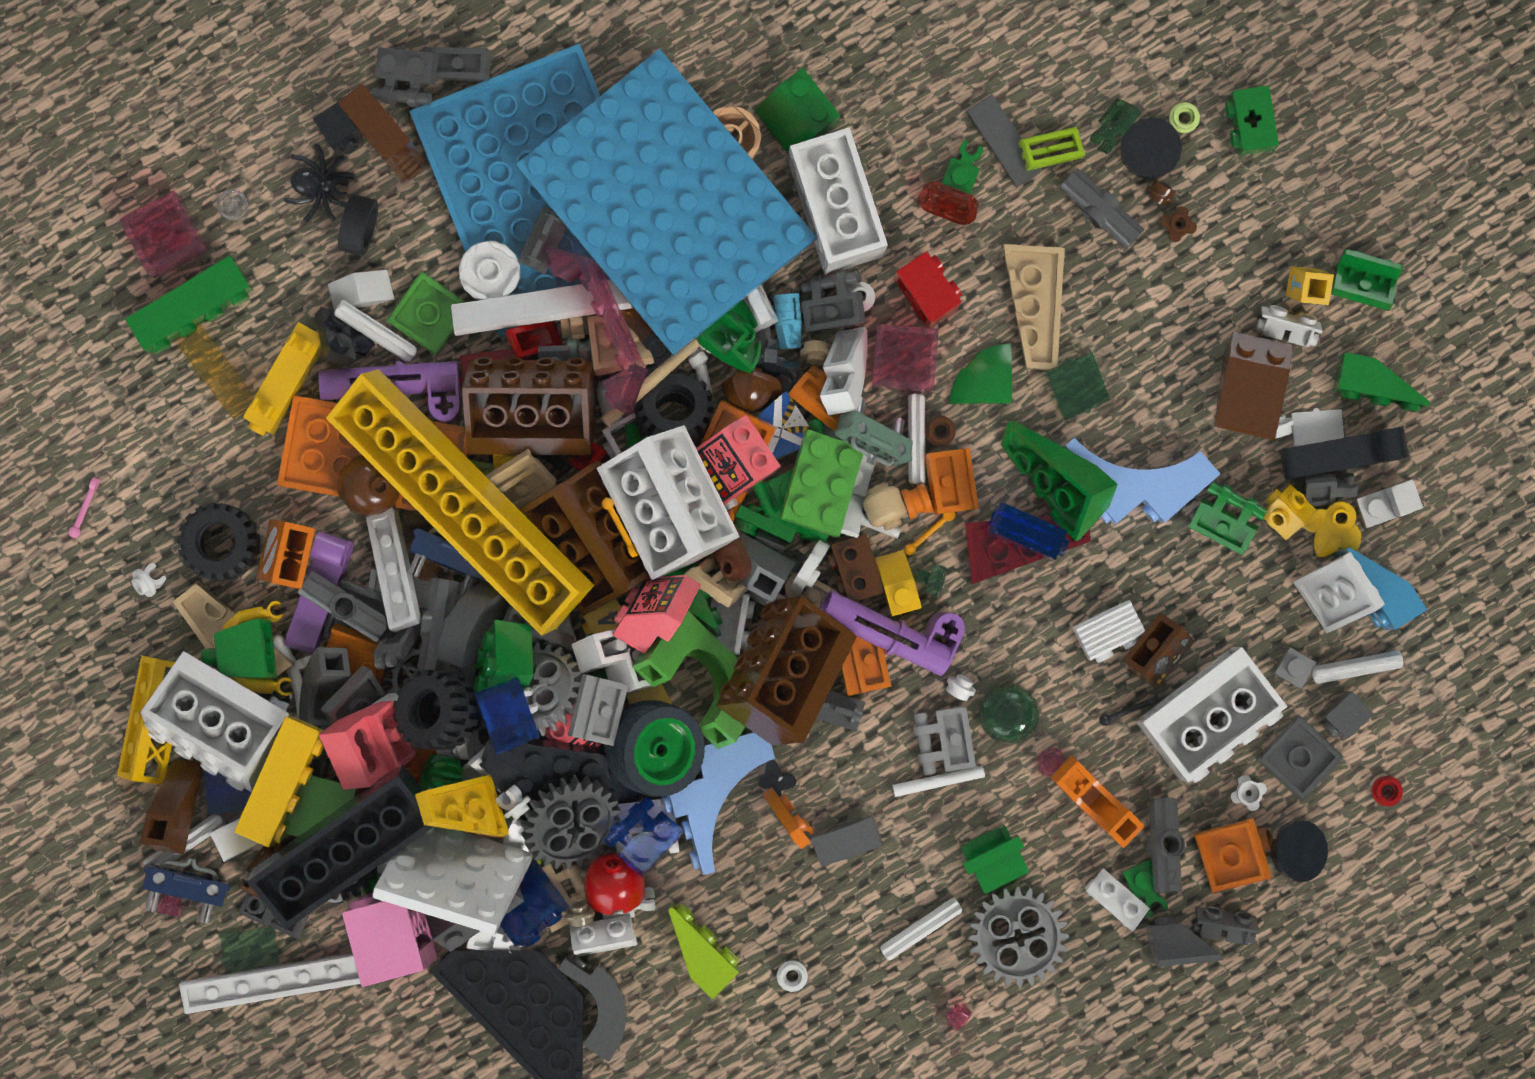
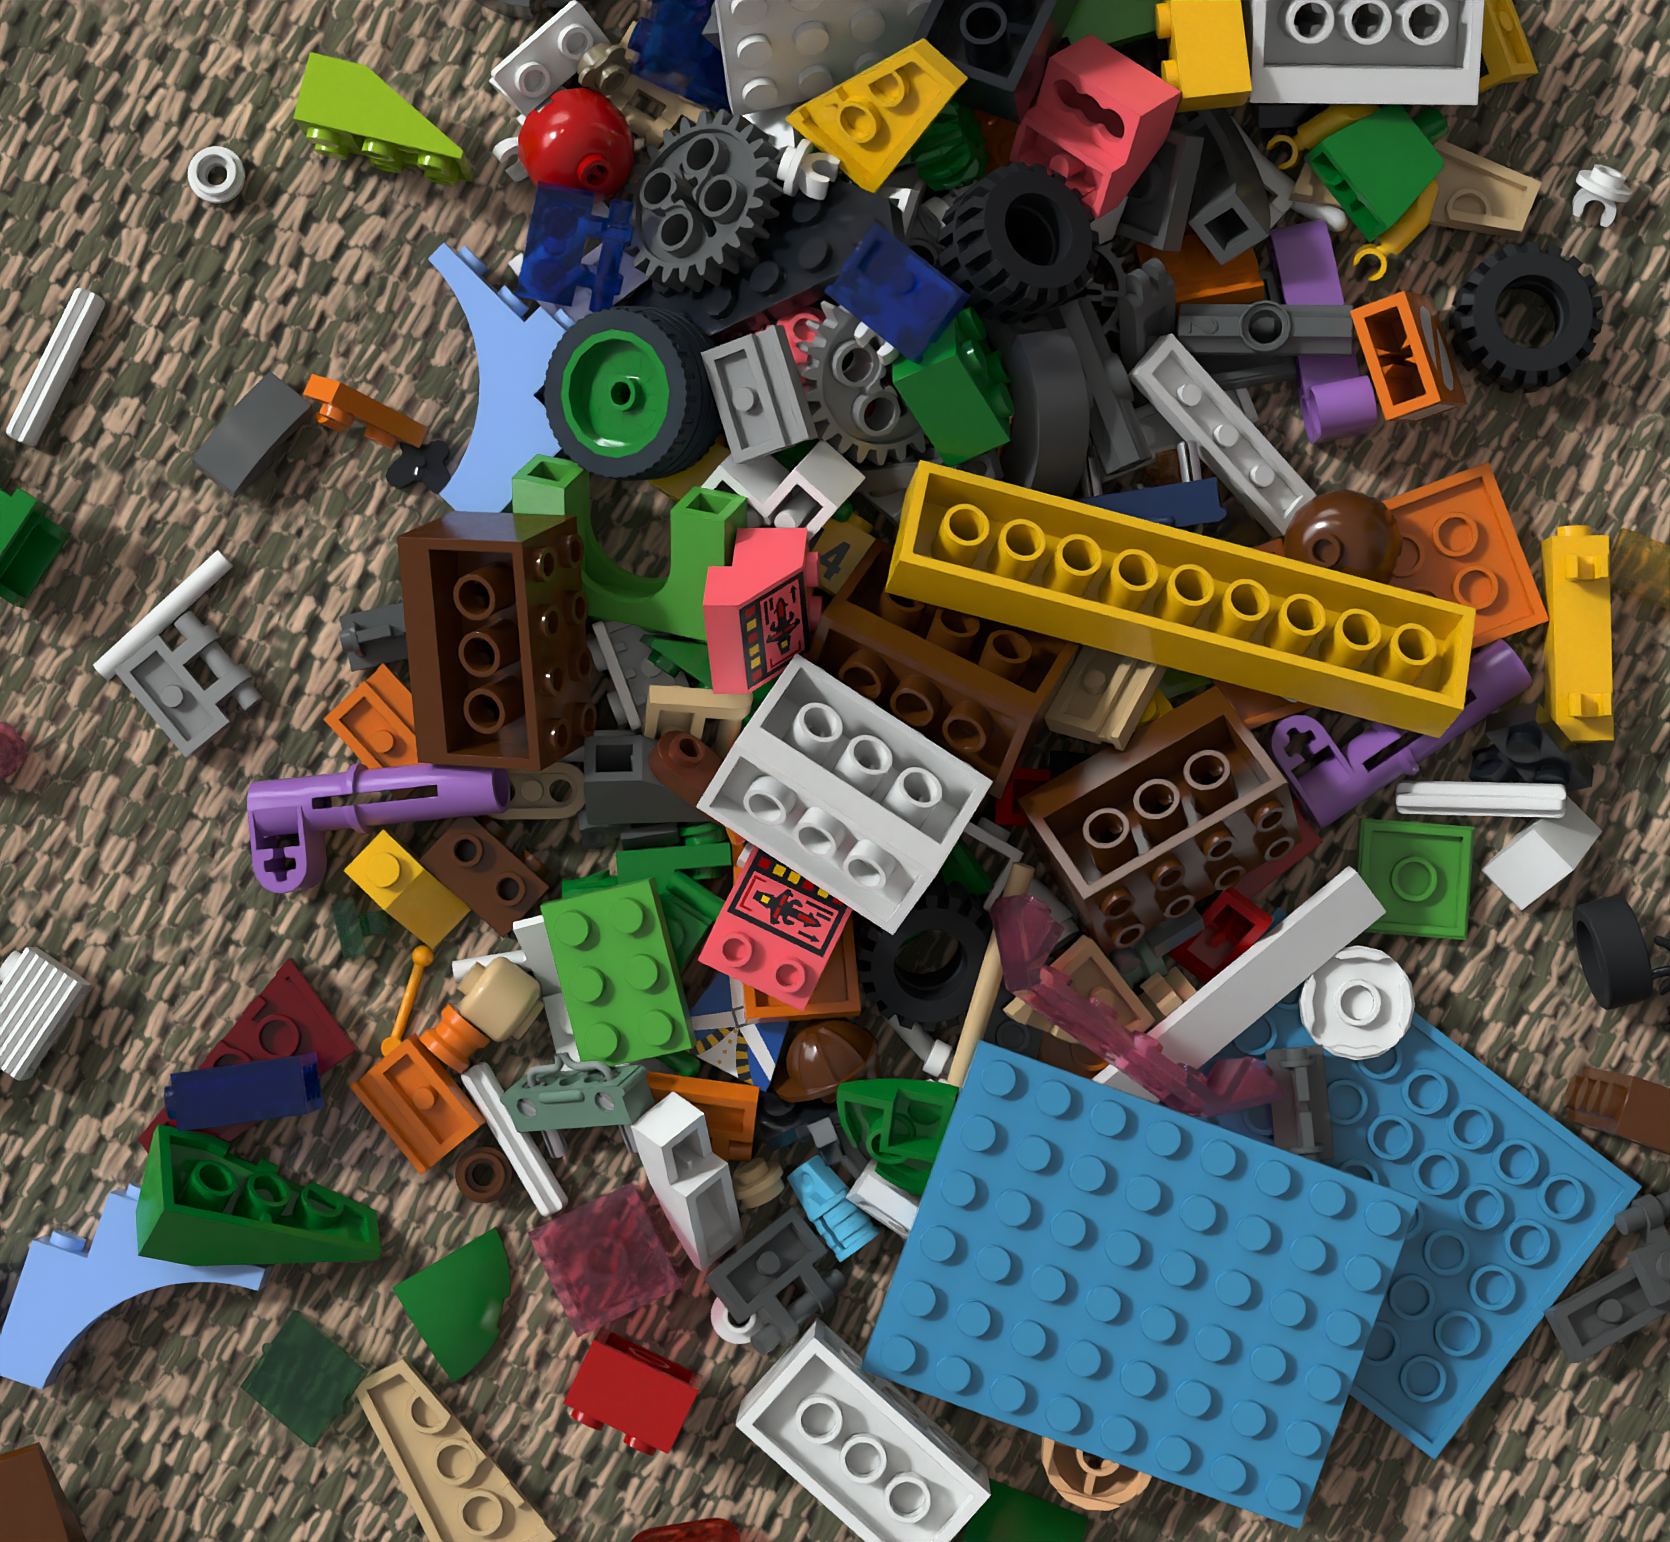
camera: 155 degrees right, 0 degrees up
(607, 504) = (939, 733): light orange hinge -> none
(808, 574) = (557, 817): white plate -> none
(960, 687) = (212, 783): white plate -> none
(1009, 713) = (112, 787): clear green cylinder -> none

